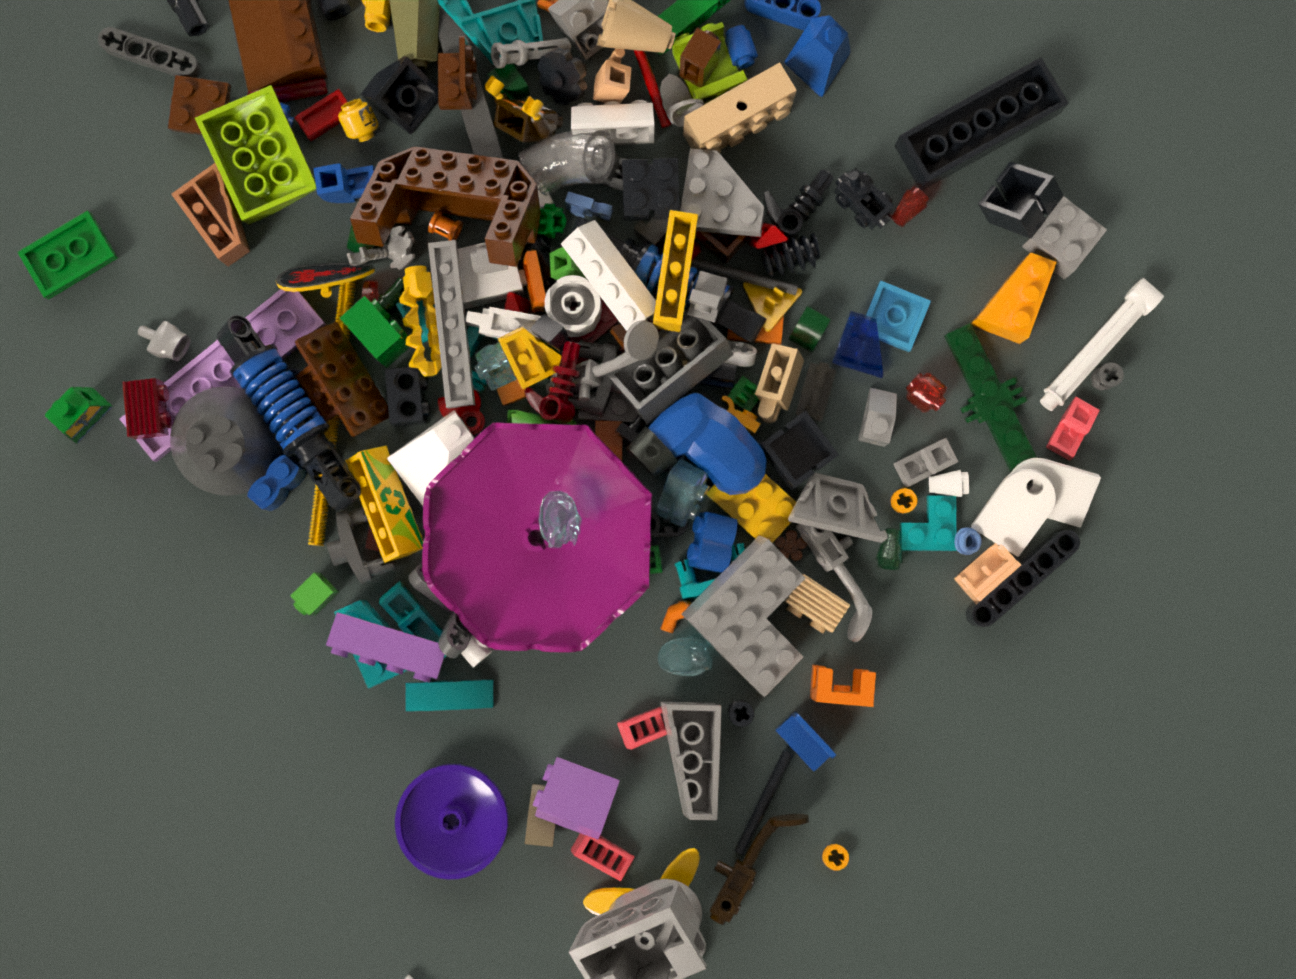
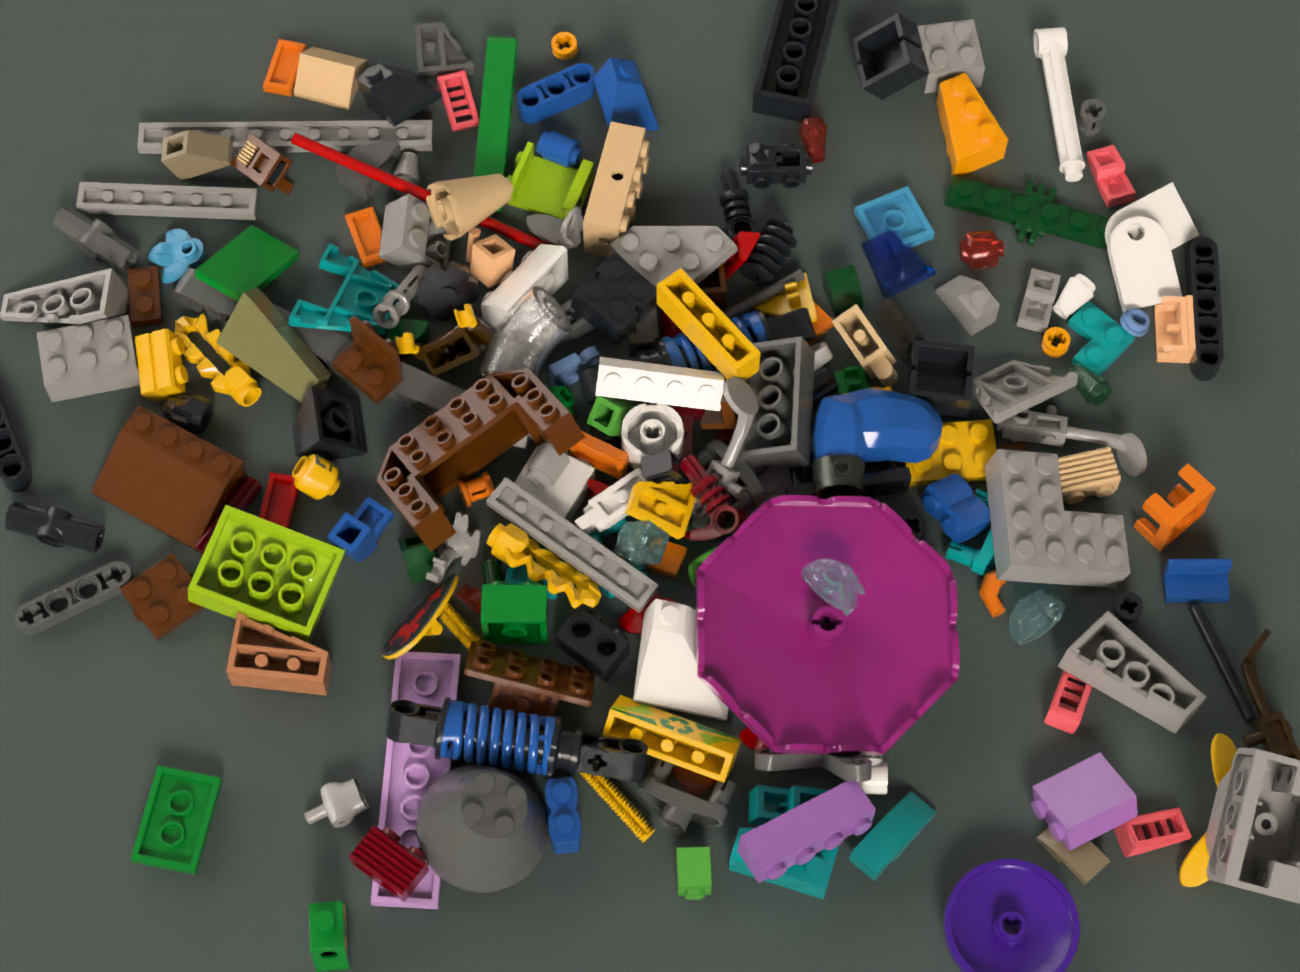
camera: 50 degrees left, 20 degrees down
(681, 493) = (894, 486): clear light blue brick -> none
(700, 57) = (542, 179): reddish brown brick -> none
(707, 296) = (753, 319): light grey brick -> none

